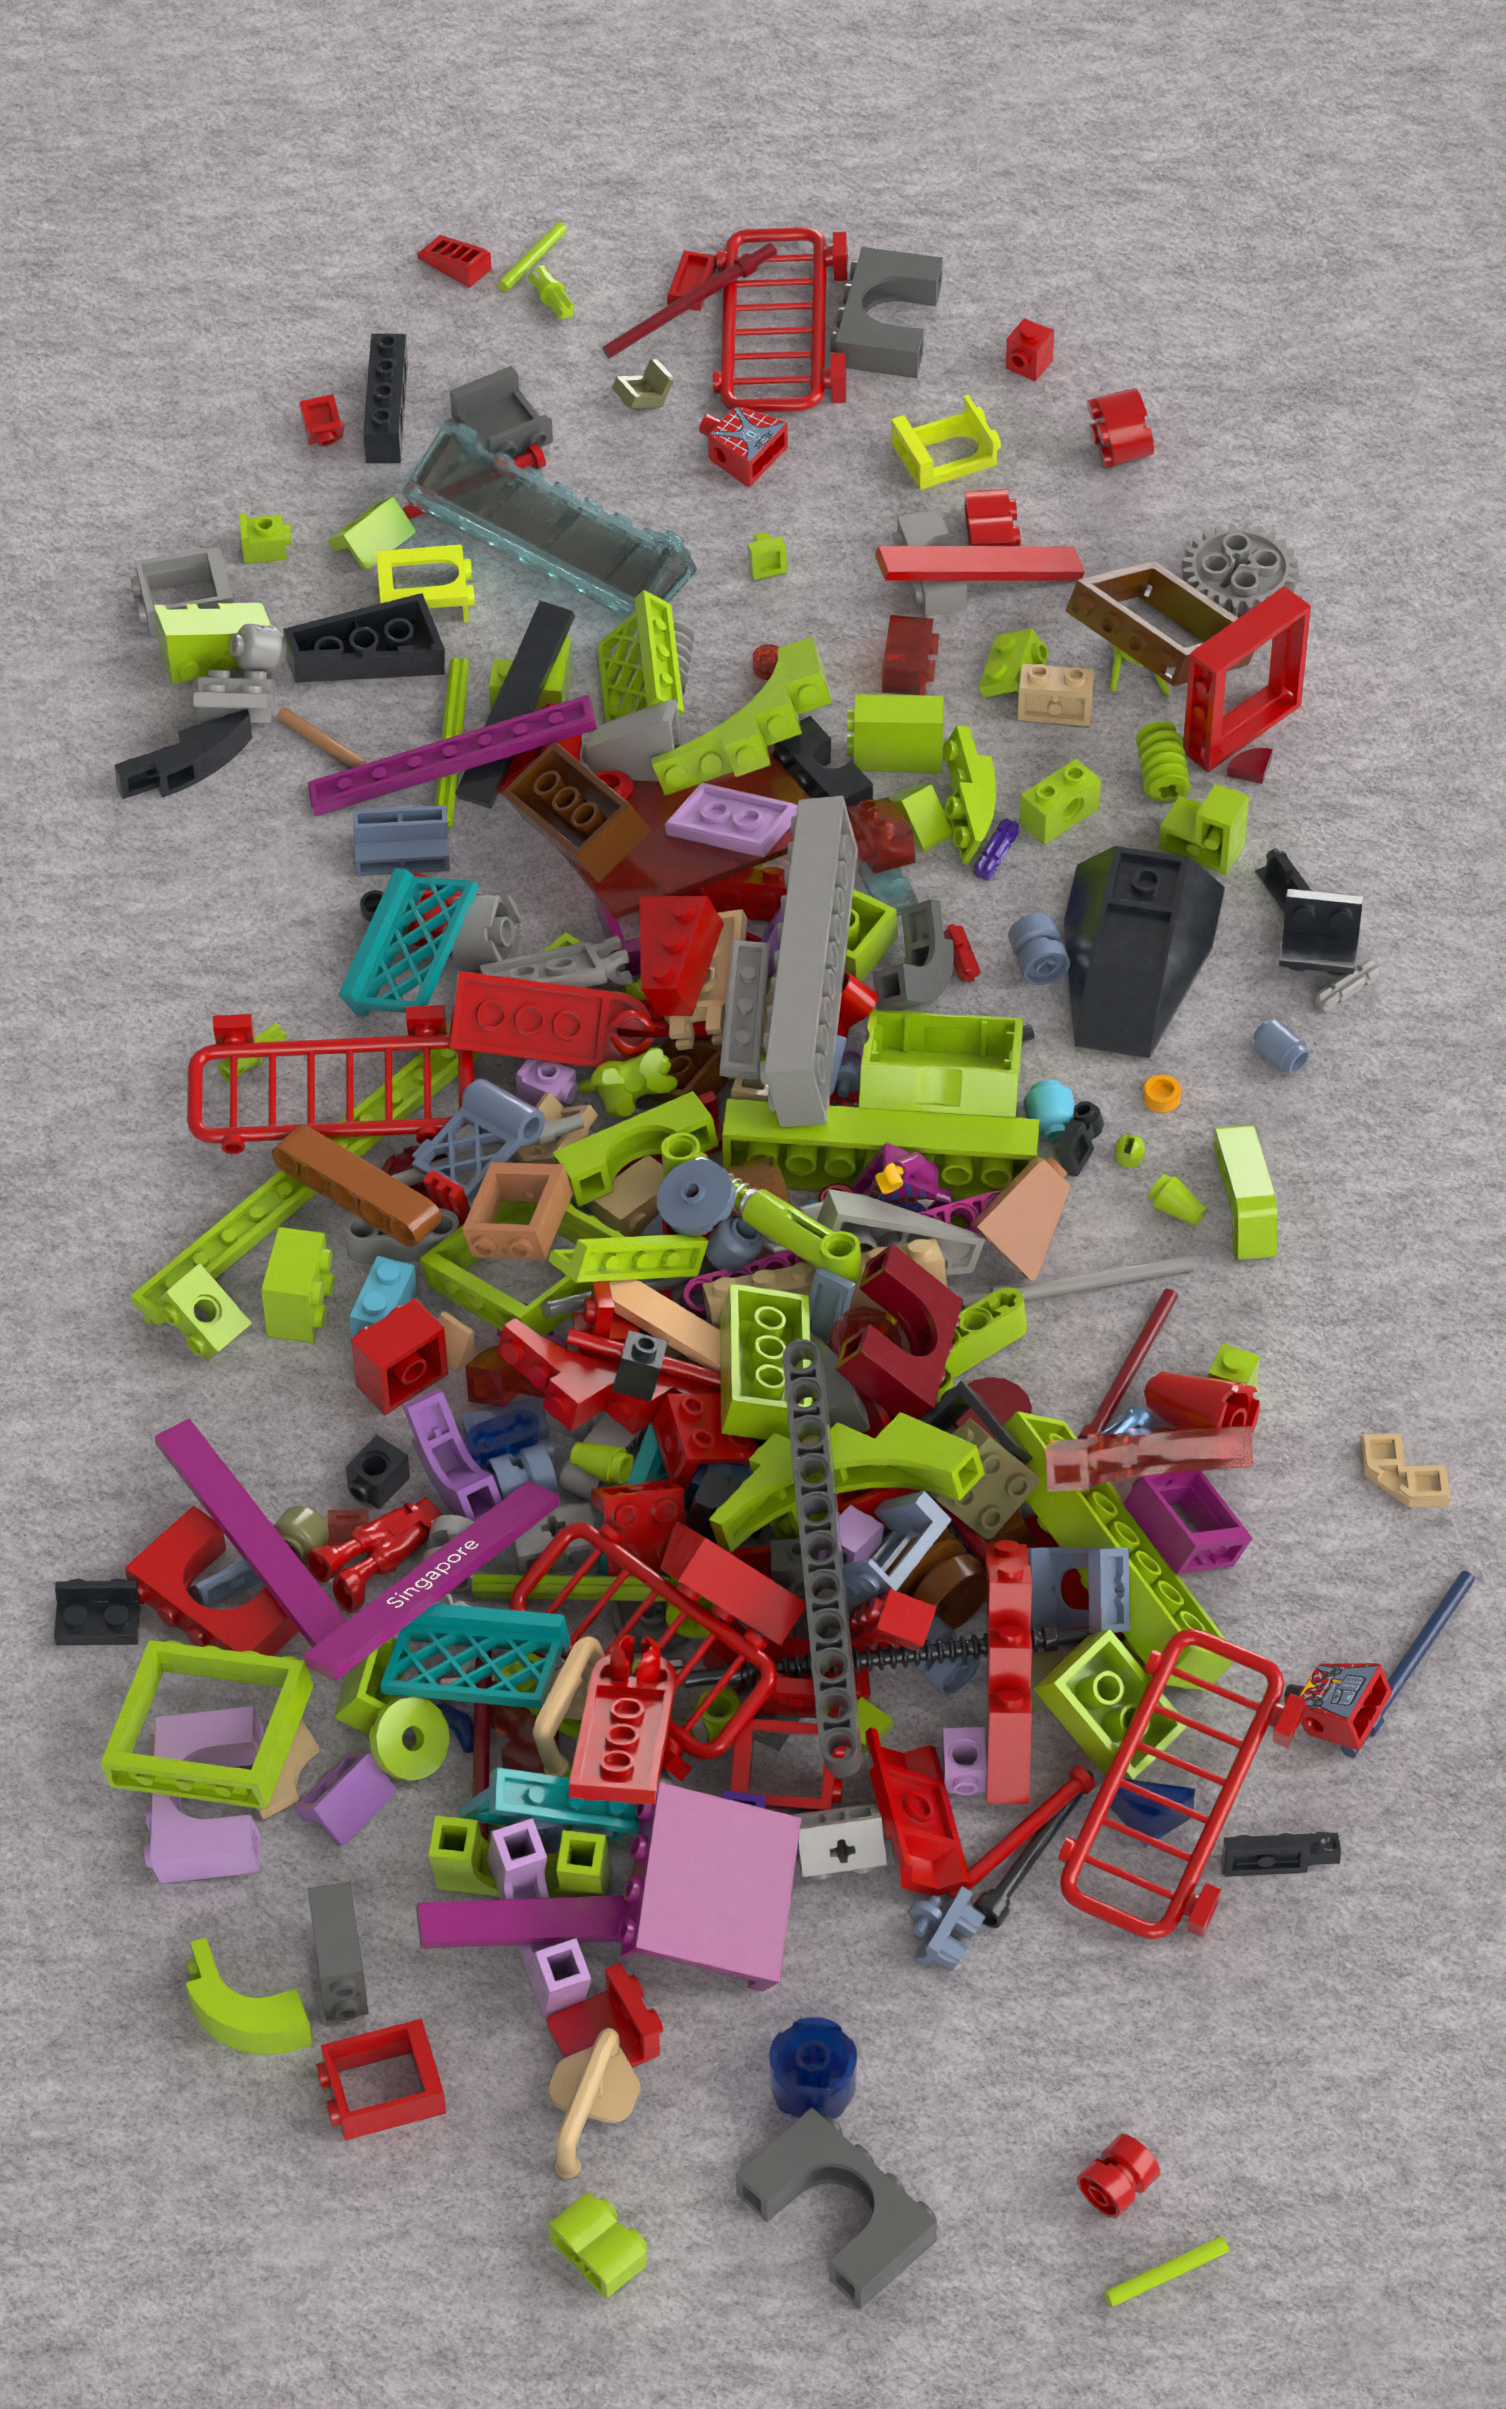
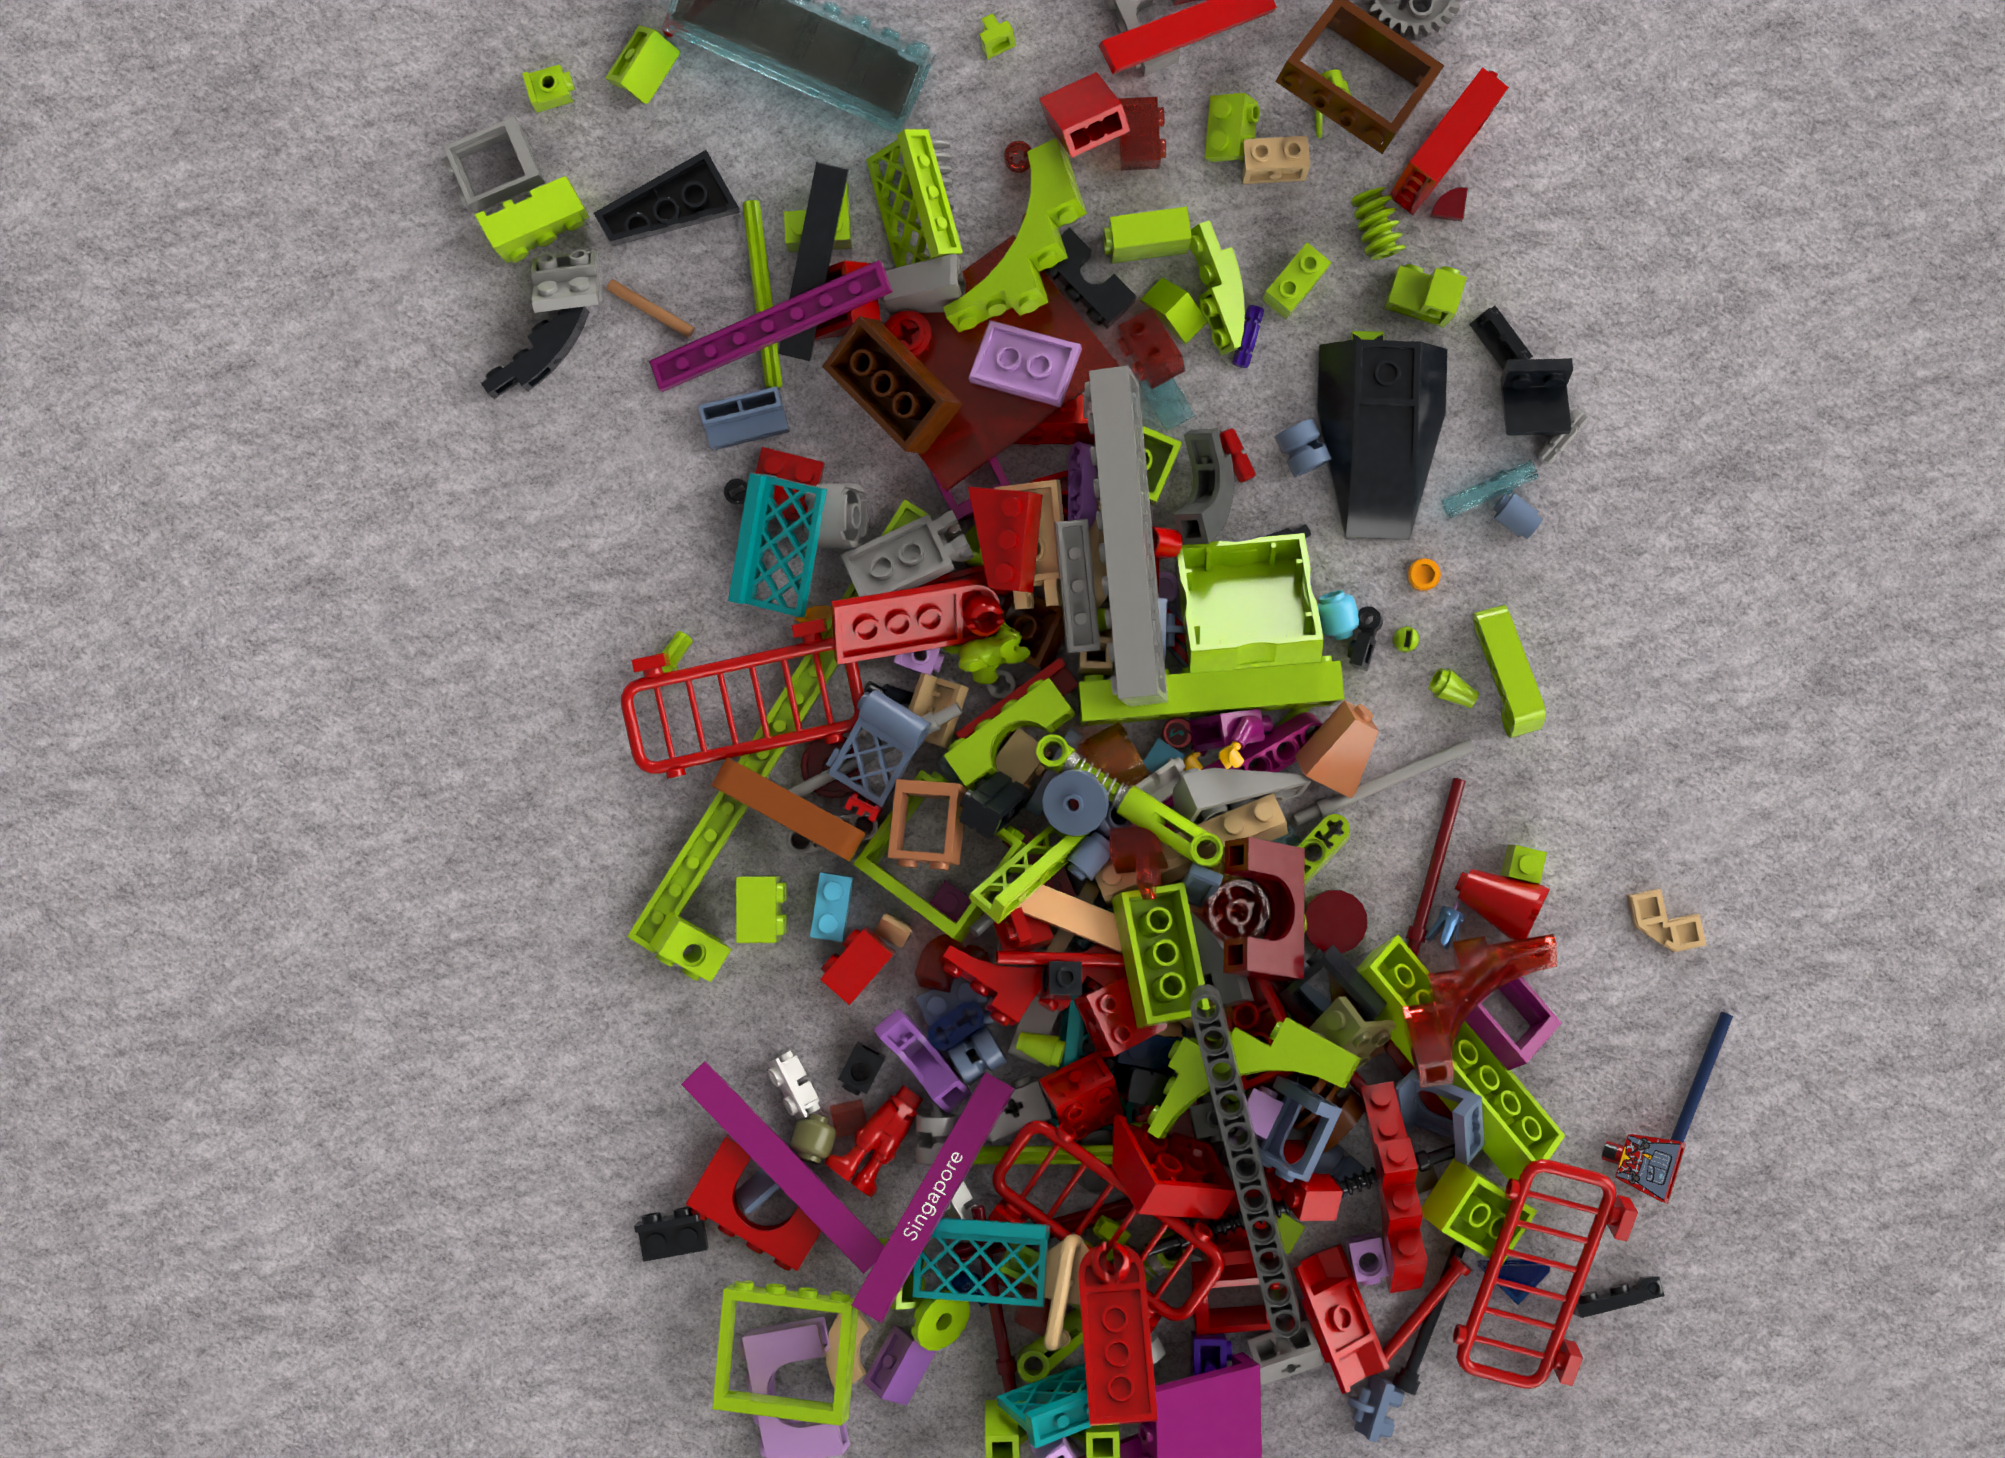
camera: 10 degrees left, 35 degrees up
(258, 647) = (575, 232): light grey head -> none
(283, 1468) = (796, 1097): none -> white hinge
(441, 596) = (727, 136): neon yellow panel -> none
(600, 1197) = (992, 804): none -> black brick
(702, 1262) = (1089, 856): none -> sand blue brick
(759, 1256) = (1139, 852): none -> clear red brick
(848, 619) = (1084, 114): none -> red brick
(1250, 1020) = (1501, 483): none -> clear light blue pin

